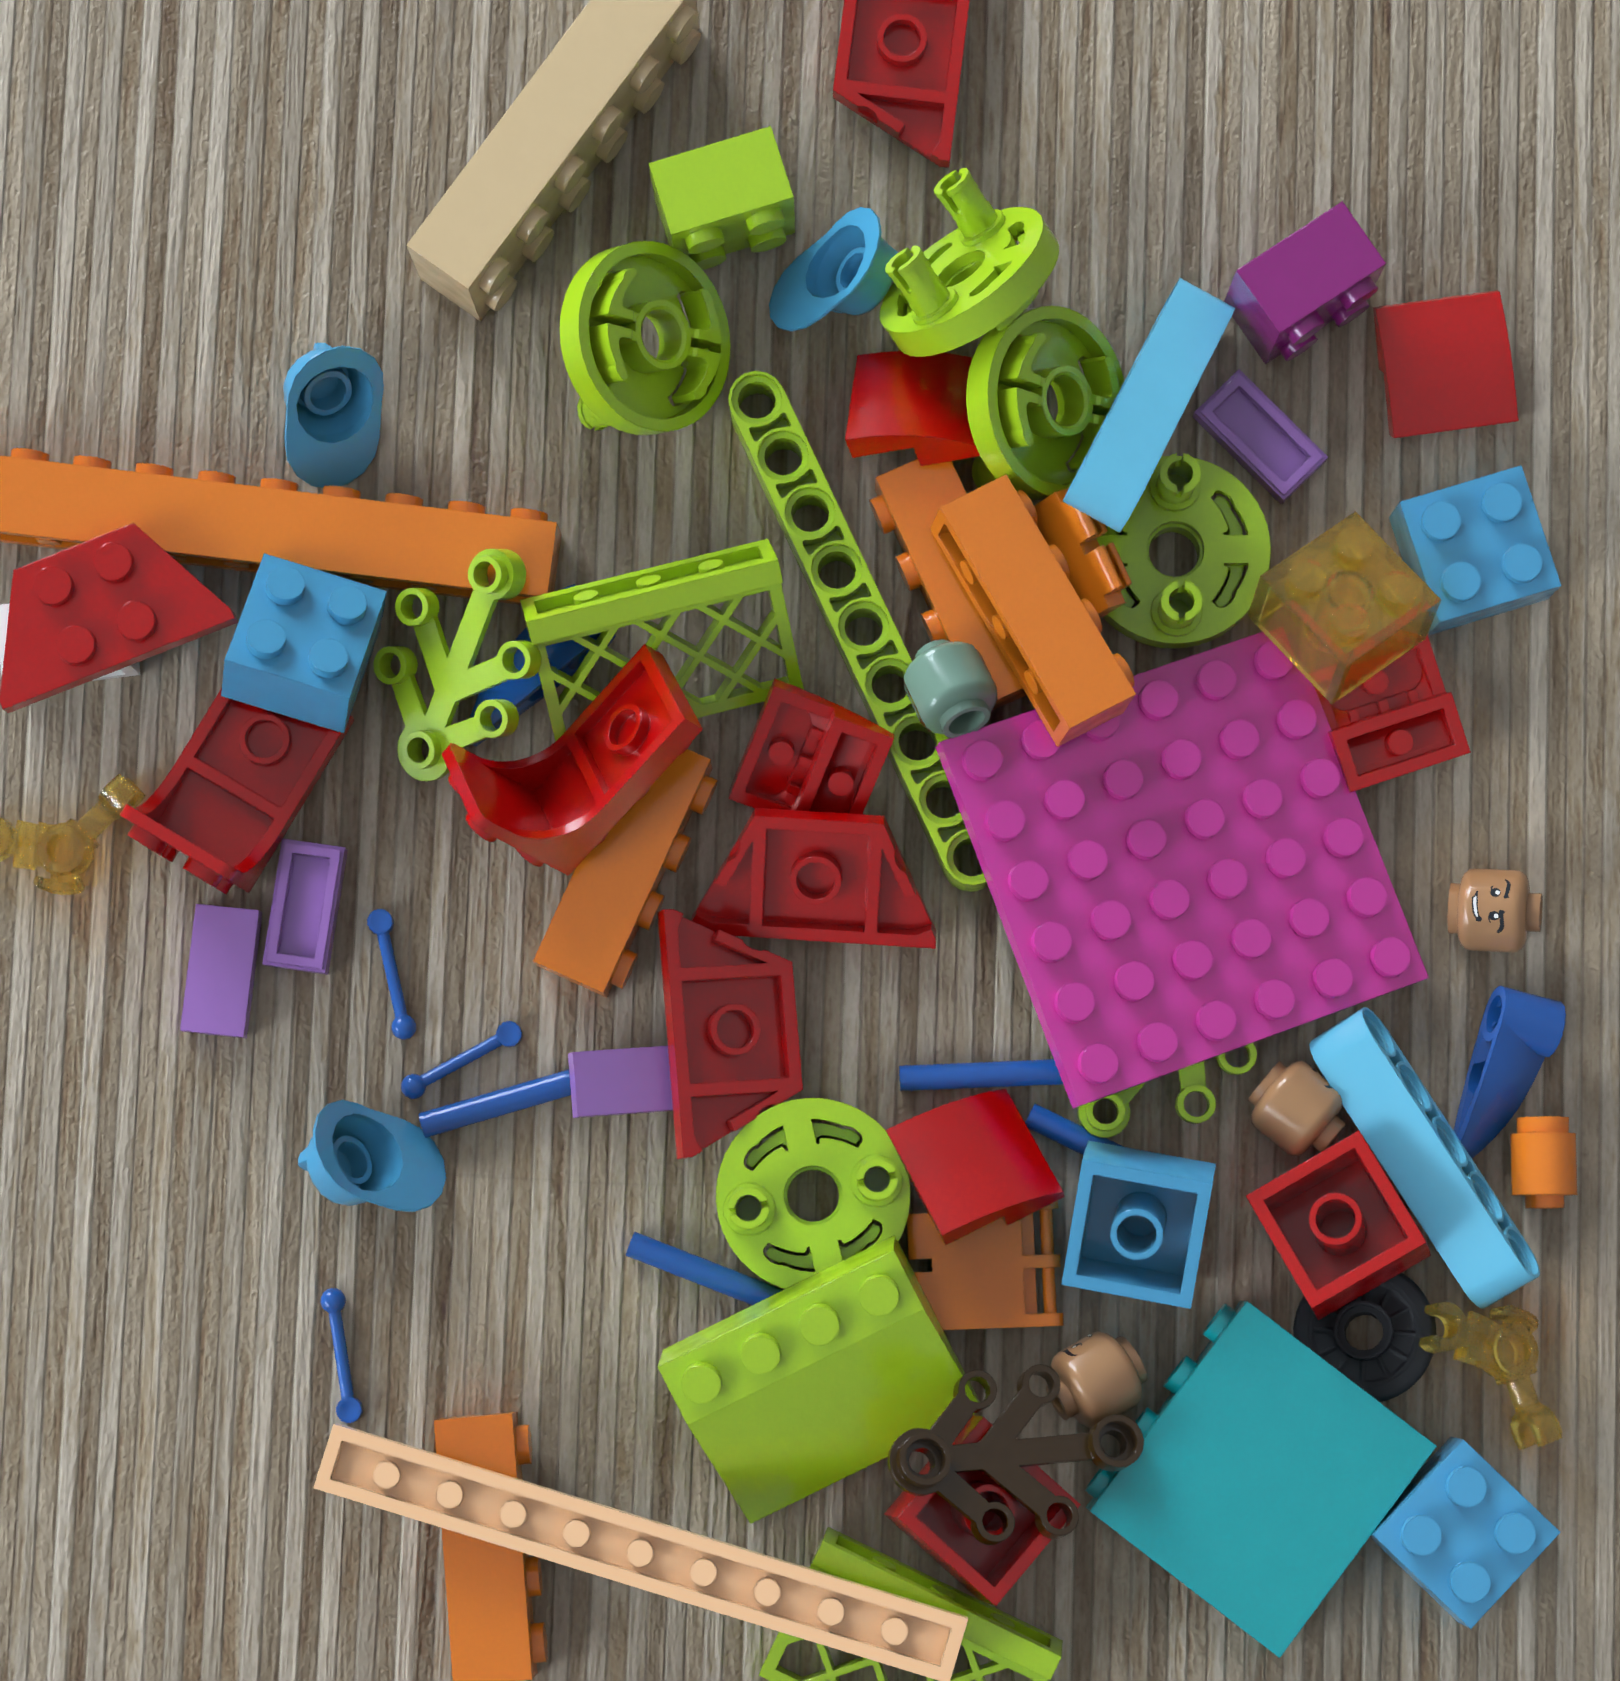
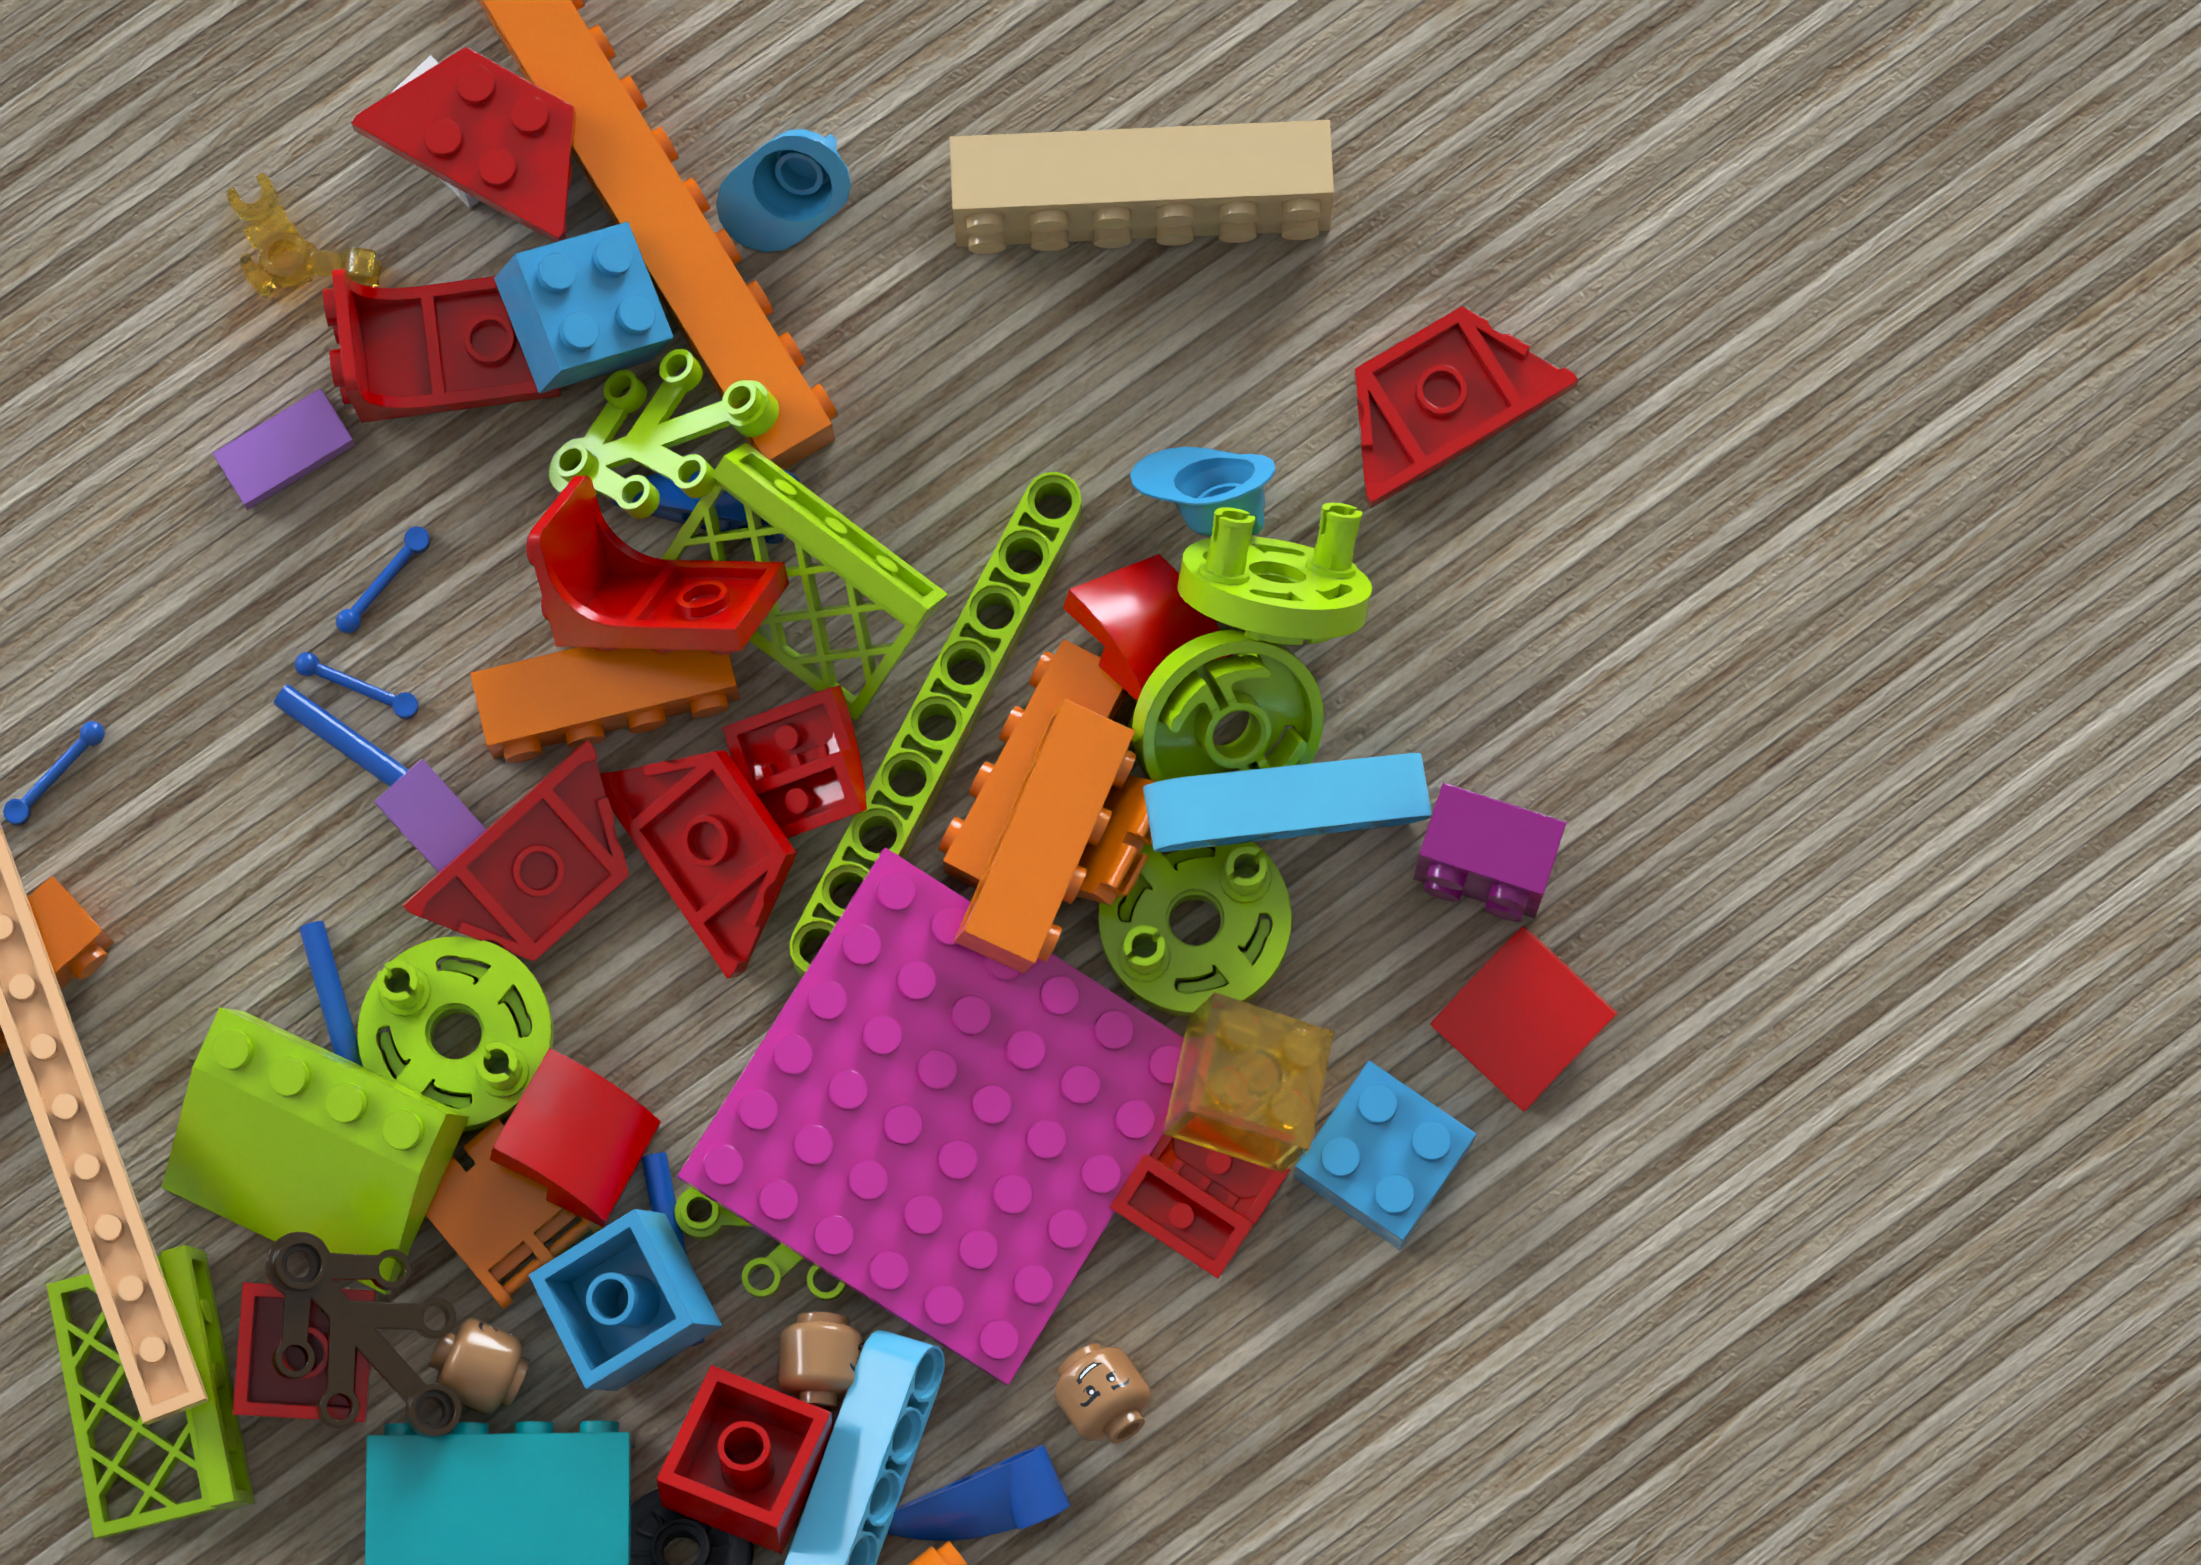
camera: 50 degrees right, 5 degrees down
(305, 906) = (384, 473): medium lavender tile -> none
(372, 1159) = (223, 674): dark azure piece -> none
(605, 347) = (980, 389): lime piece -> none
(725, 198) = (1192, 351): lime brick -> none
(950, 688) = (934, 822): sand green head -> none
(979, 1075) = (650, 1087): blue piece -> none
(1260, 436) = (1348, 919): medium lavender tile -> none

